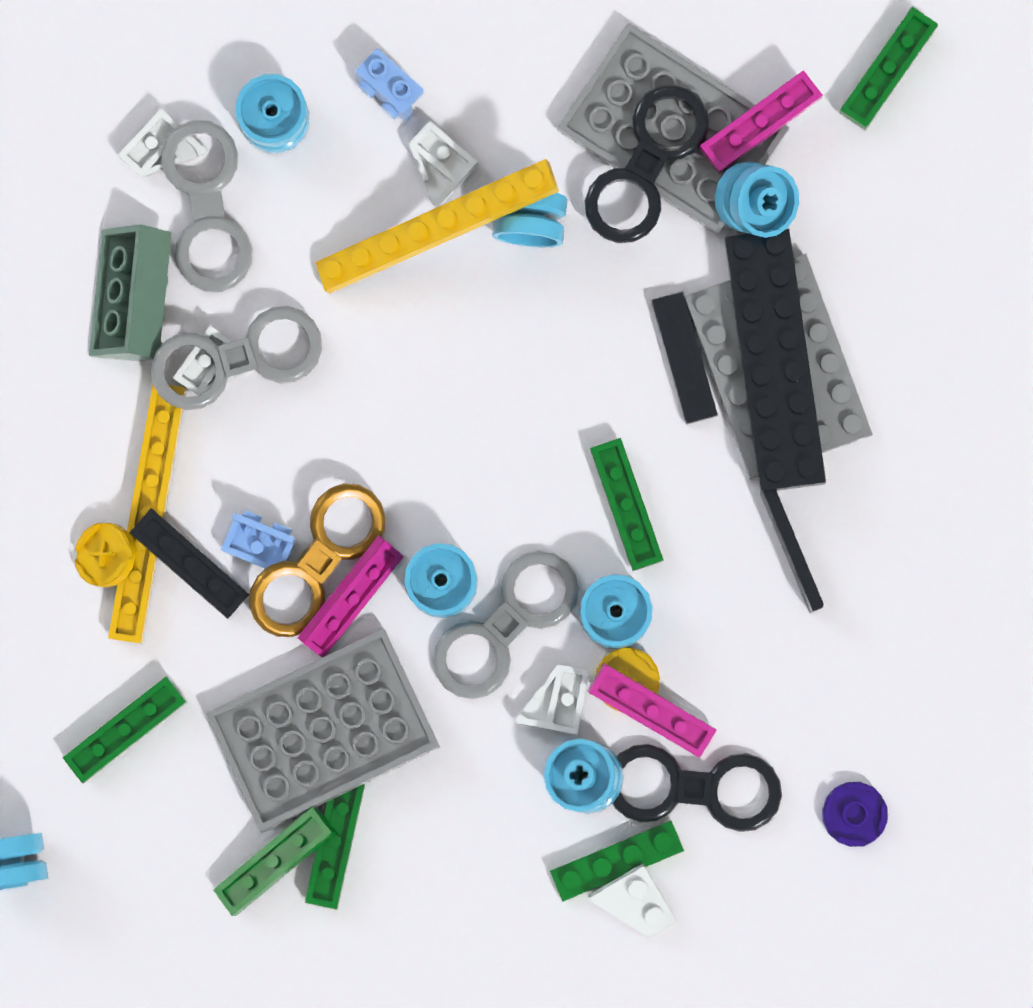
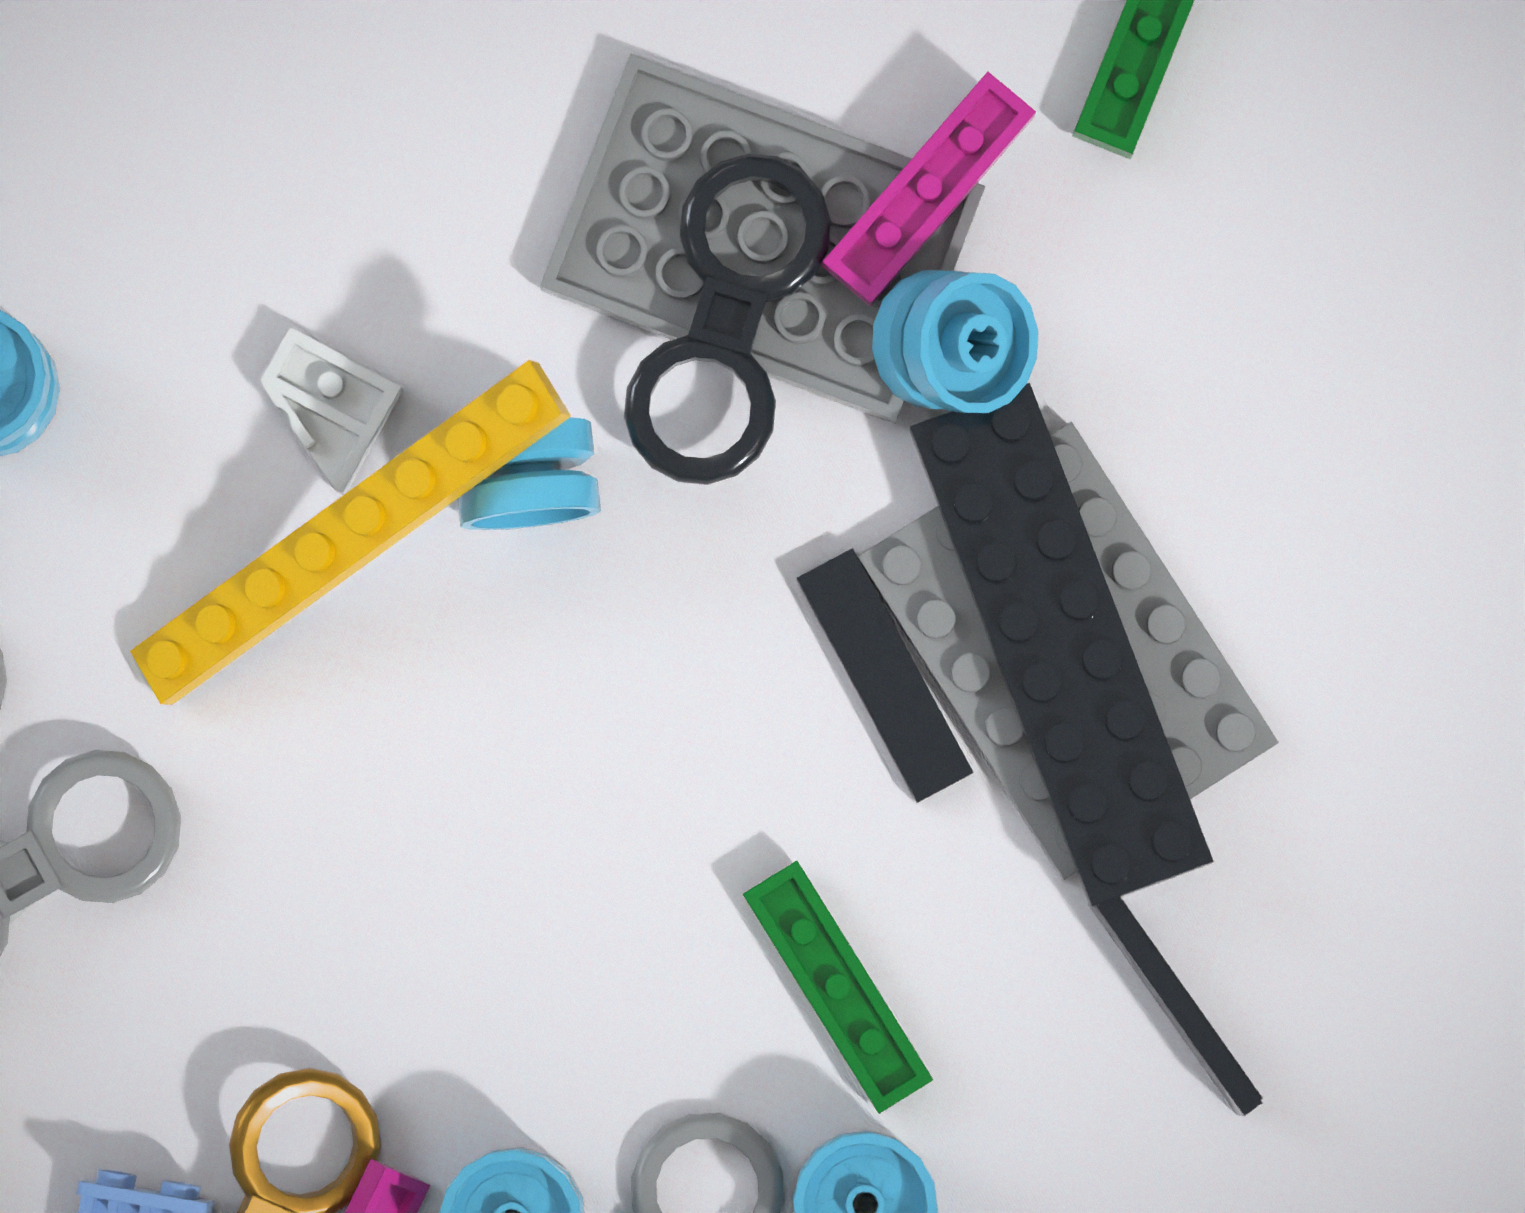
camera: 20 degrees left, 0 degrees up
(390, 84) = (197, 274): light blue bracket -> none

